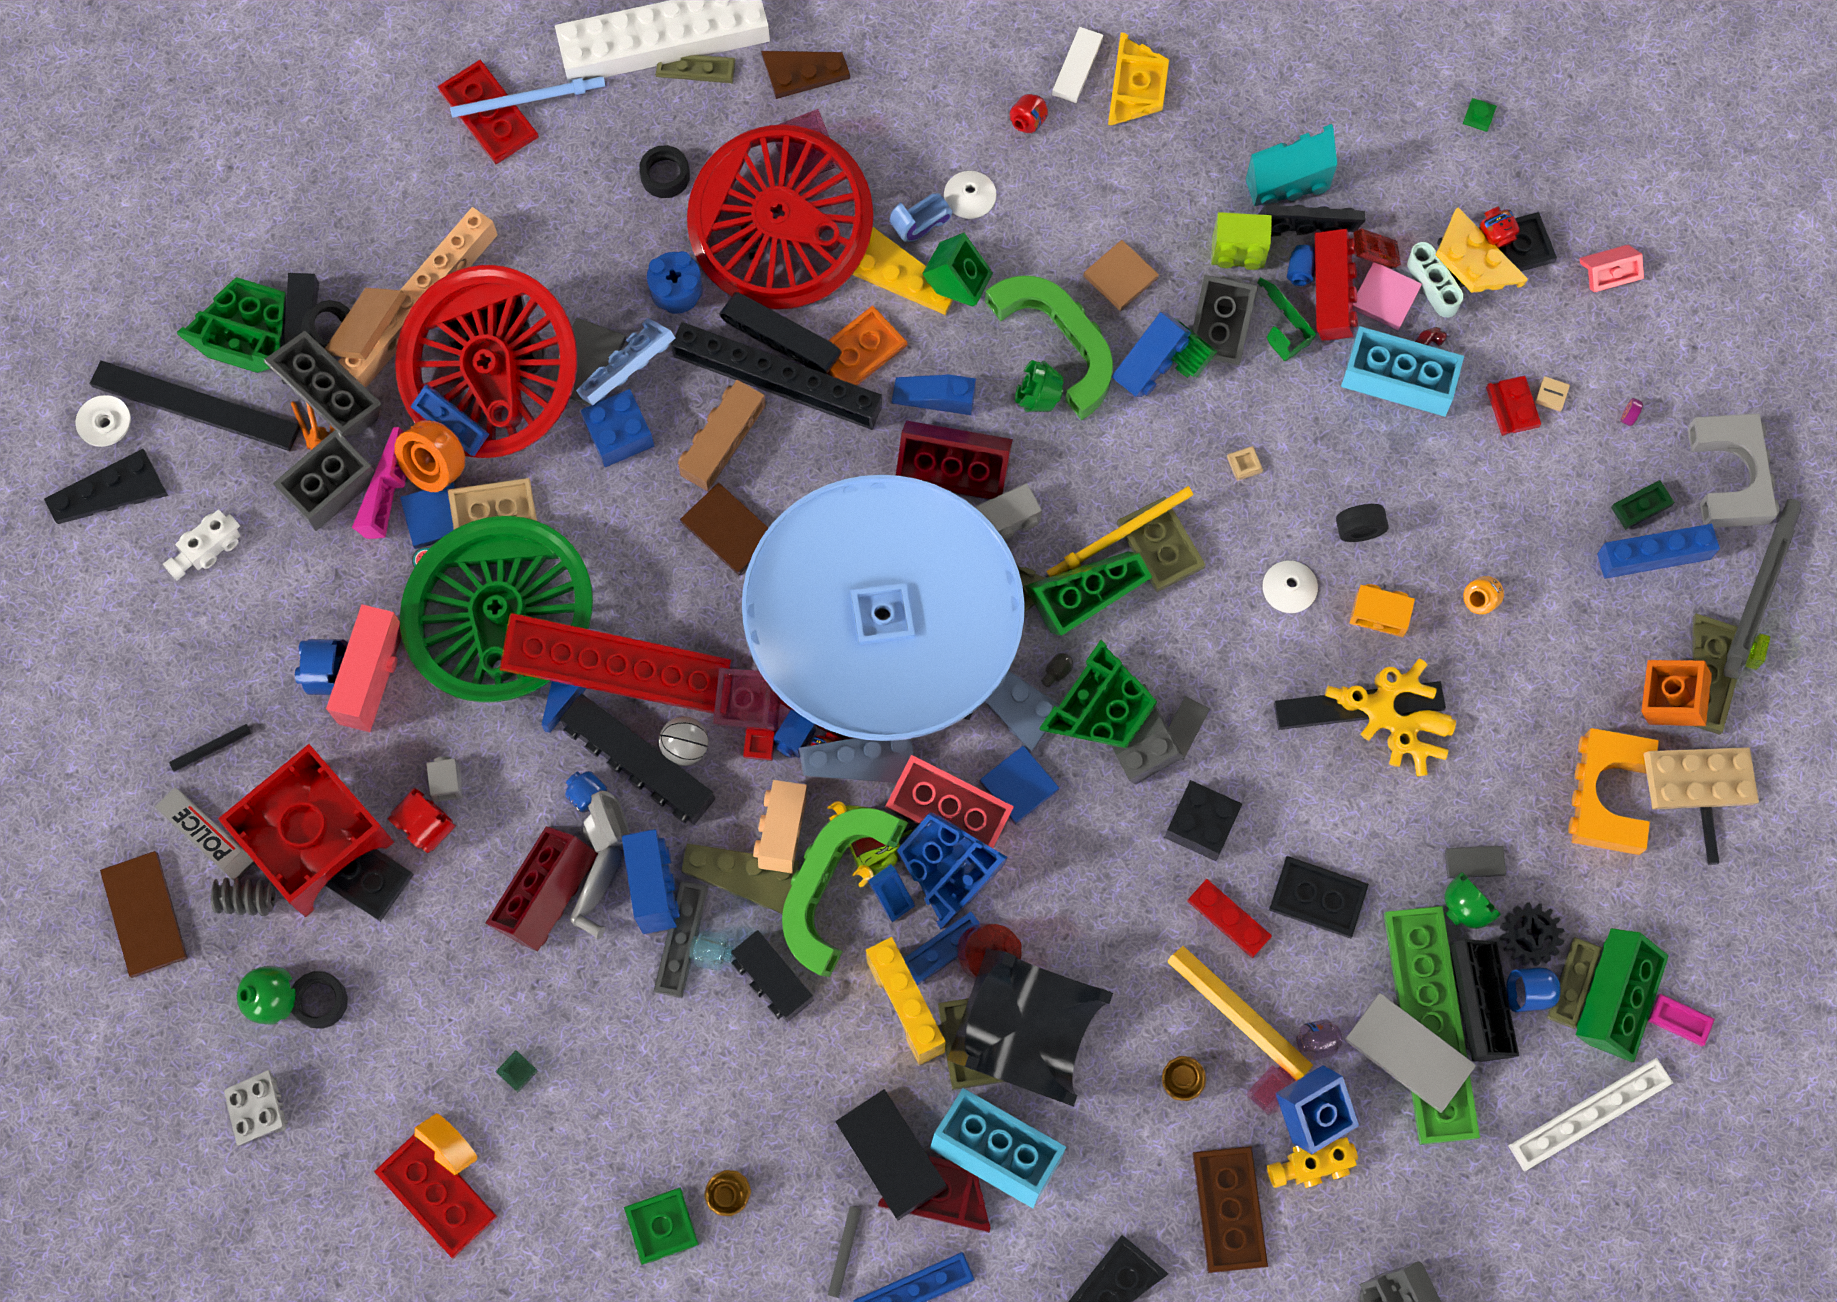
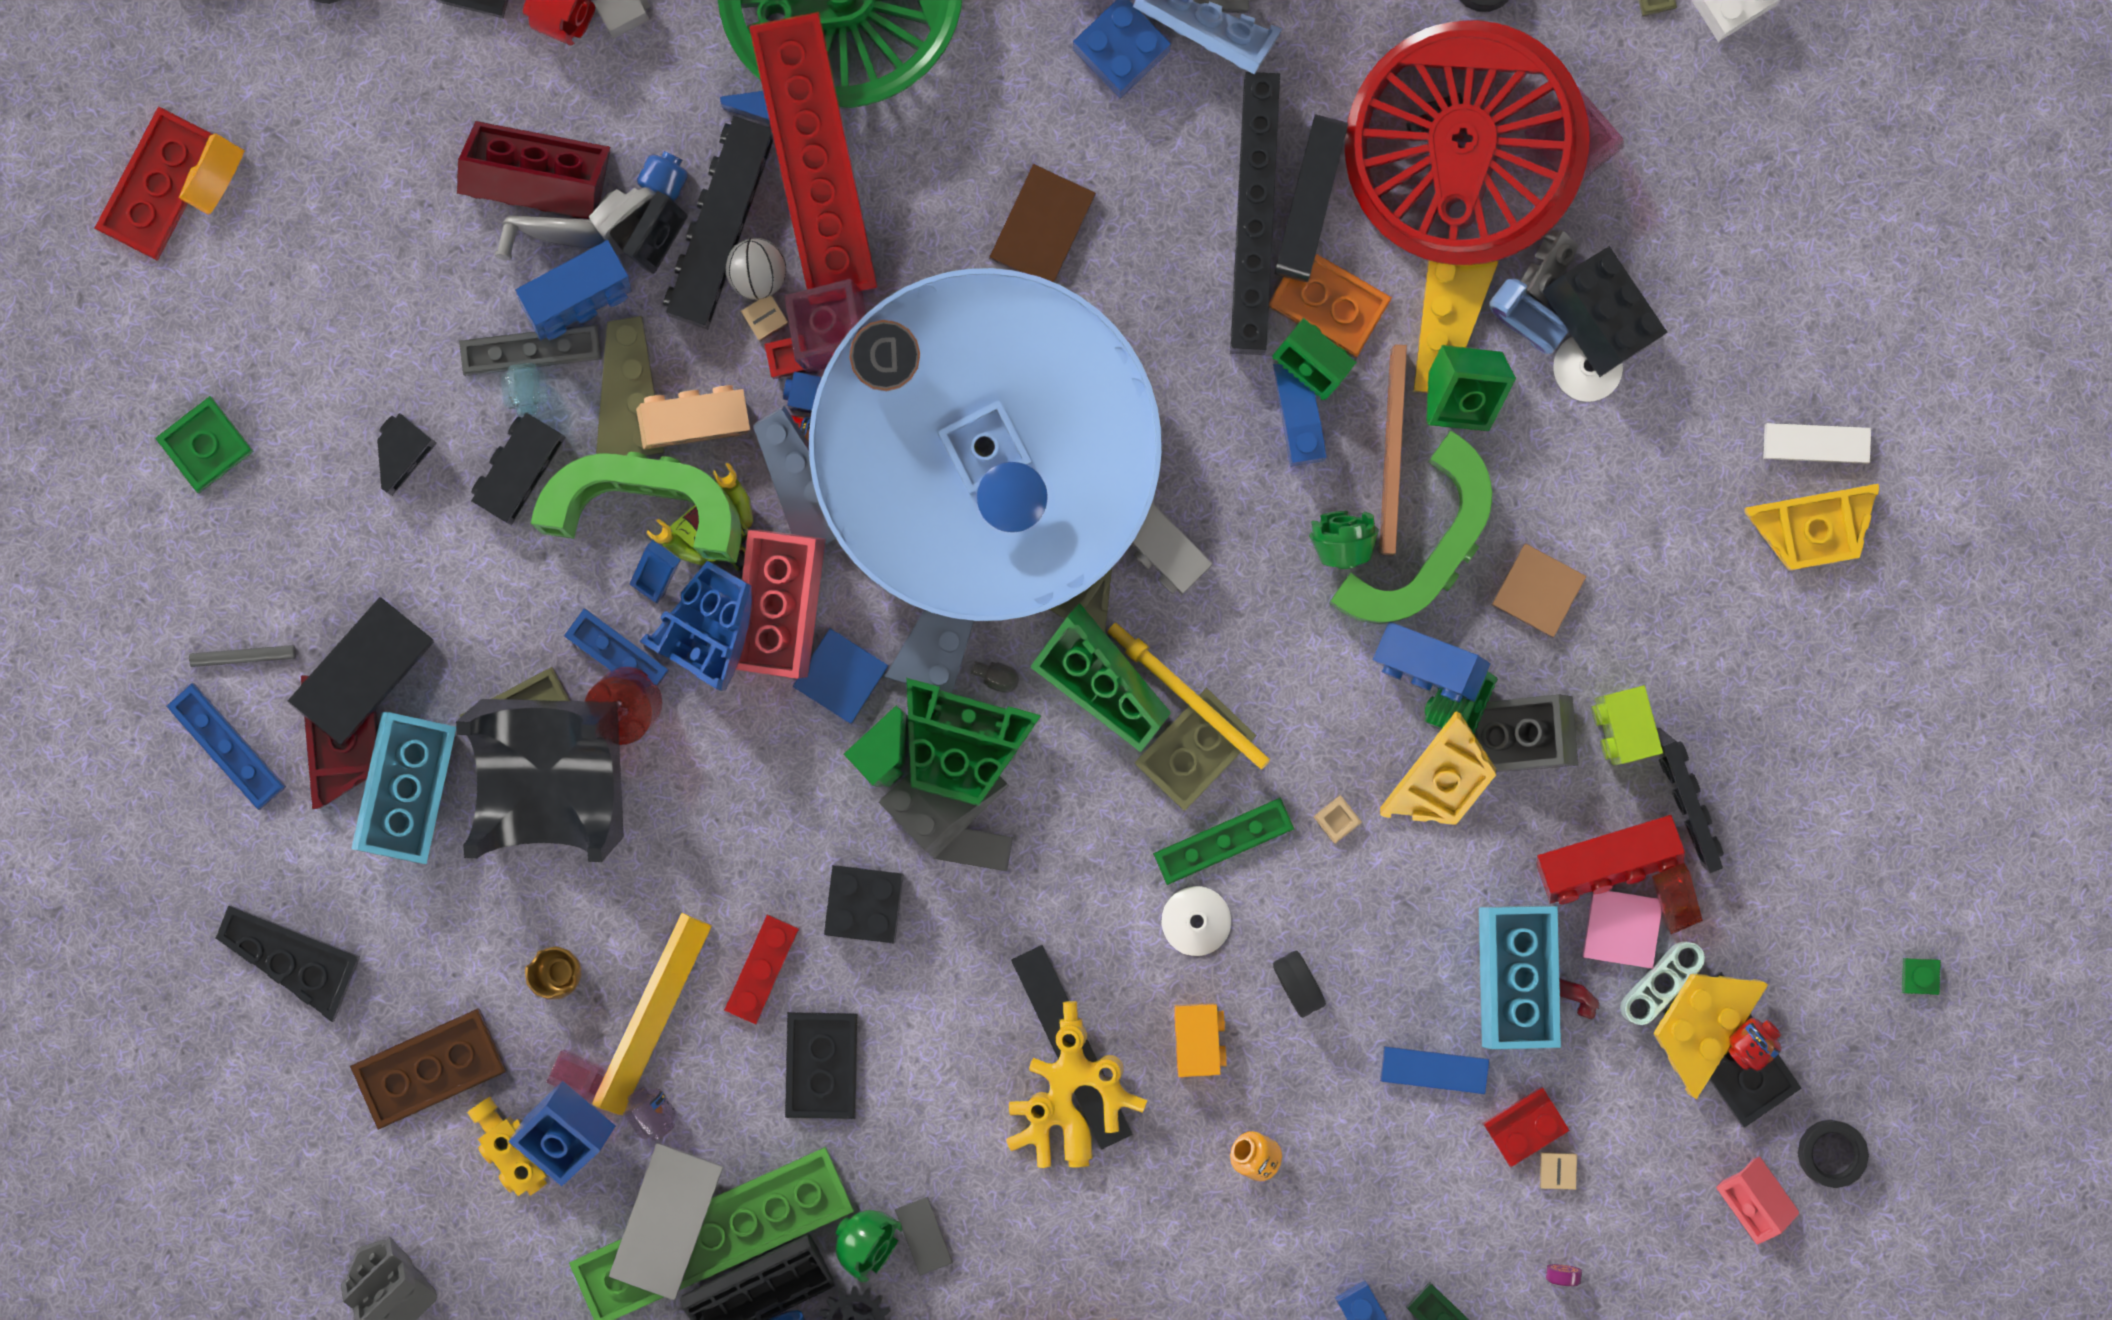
camera: 75 degrees right, 15 degrees up
(516, 1071) = (318, 221): clear green plate -> none
(627, 805) = (655, 232): none -> black tile
(661, 280) = (1338, 25): blue brick -> none
(721, 435) = (1154, 175): medium nougat brick -> none
(722, 752) = (764, 317): none -> tan tile
(723, 1064) = (400, 451): none -> black slope
(727, 1193) = (259, 504): pearl gold hair -> none
(790, 651) = (884, 355): none -> black tile
(803, 70) = (1688, 99): reddish brown wing -> none
(882, 187) = (1556, 253): none -> light grey hinge
(899, 367) = (1314, 359): none -> green brick
(918, 1023) = (501, 657): yellow arch -> none
(930, 596) = (1012, 497): none -> blue dish
(936, 163) = (1604, 311): none -> black brick
(954, 459) = (1219, 464): dark red slope -> none
(981, 336) = (1392, 453): none -> nougat tile
(1028, 113) = (1721, 404): red head -> none
(1091, 755) = (882, 750): none -> green slope
(1236, 548) = (1223, 841): none -> green tile
(1239, 375) = (1444, 777): none -> yellow wing
(1276, 337) = (1516, 804): green piece -> none
(1293, 169) = (1744, 762): teal wedge -> none
(1301, 265) = (1625, 811): blue brick -> none
(1453, 454) = (1434, 1070): none -> blue tile
(1600, 191) = (1859, 1161): none -> black tyre

